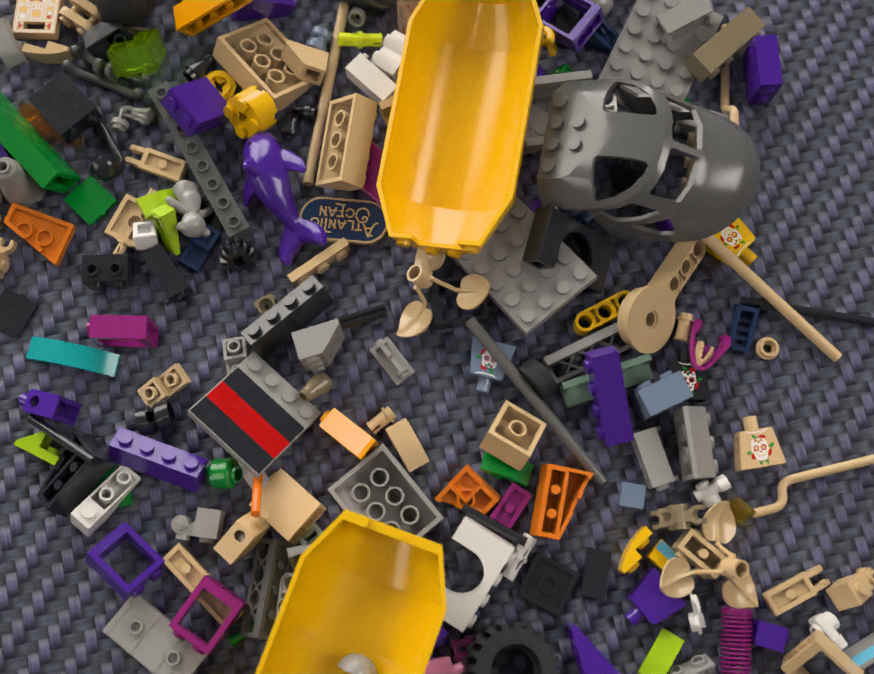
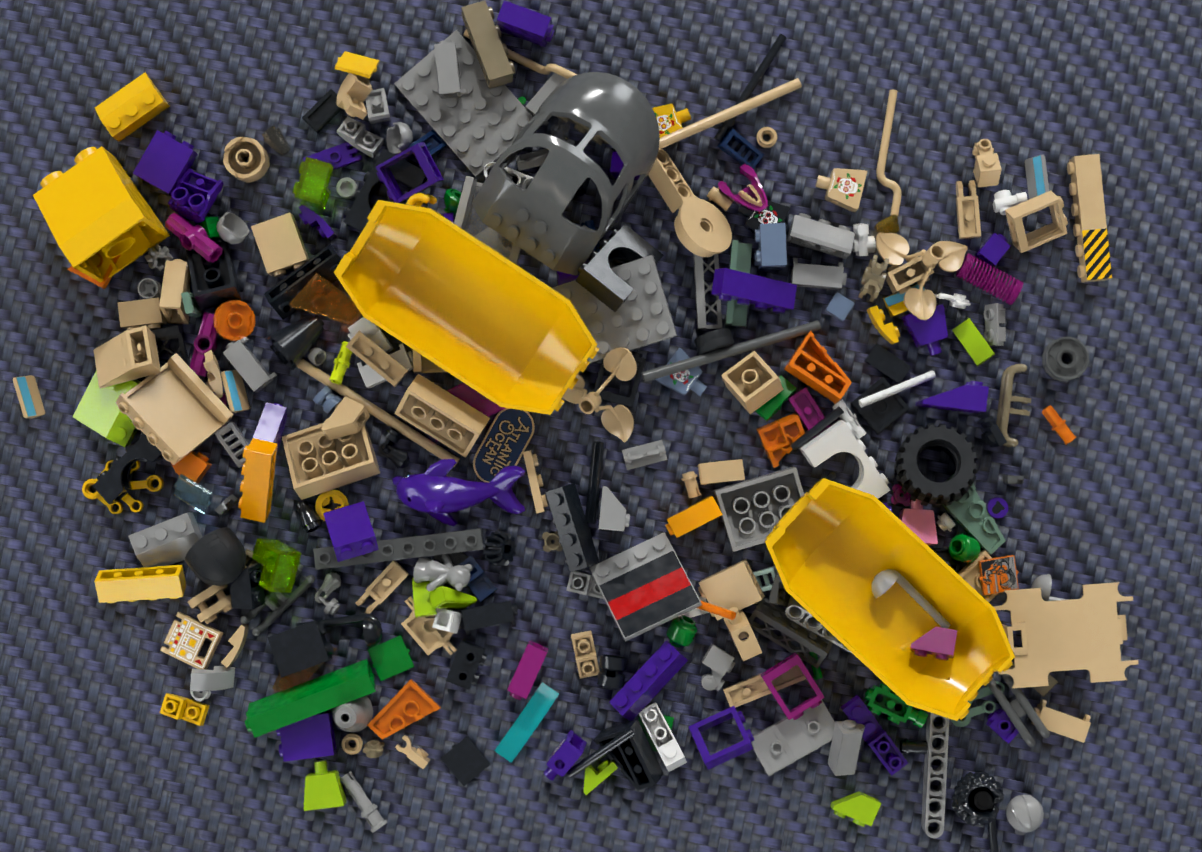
camera: 65 degrees left, 10 degrees up
(250, 112) = (375, 486): yellow brick -> none
(315, 387) = (641, 526): dark tan cone -> none
(376, 63) = (377, 358): none -> tan plate
(573, 593) = (897, 388): none -> white bar
(592, 315) = (677, 270): yellow beam -> none

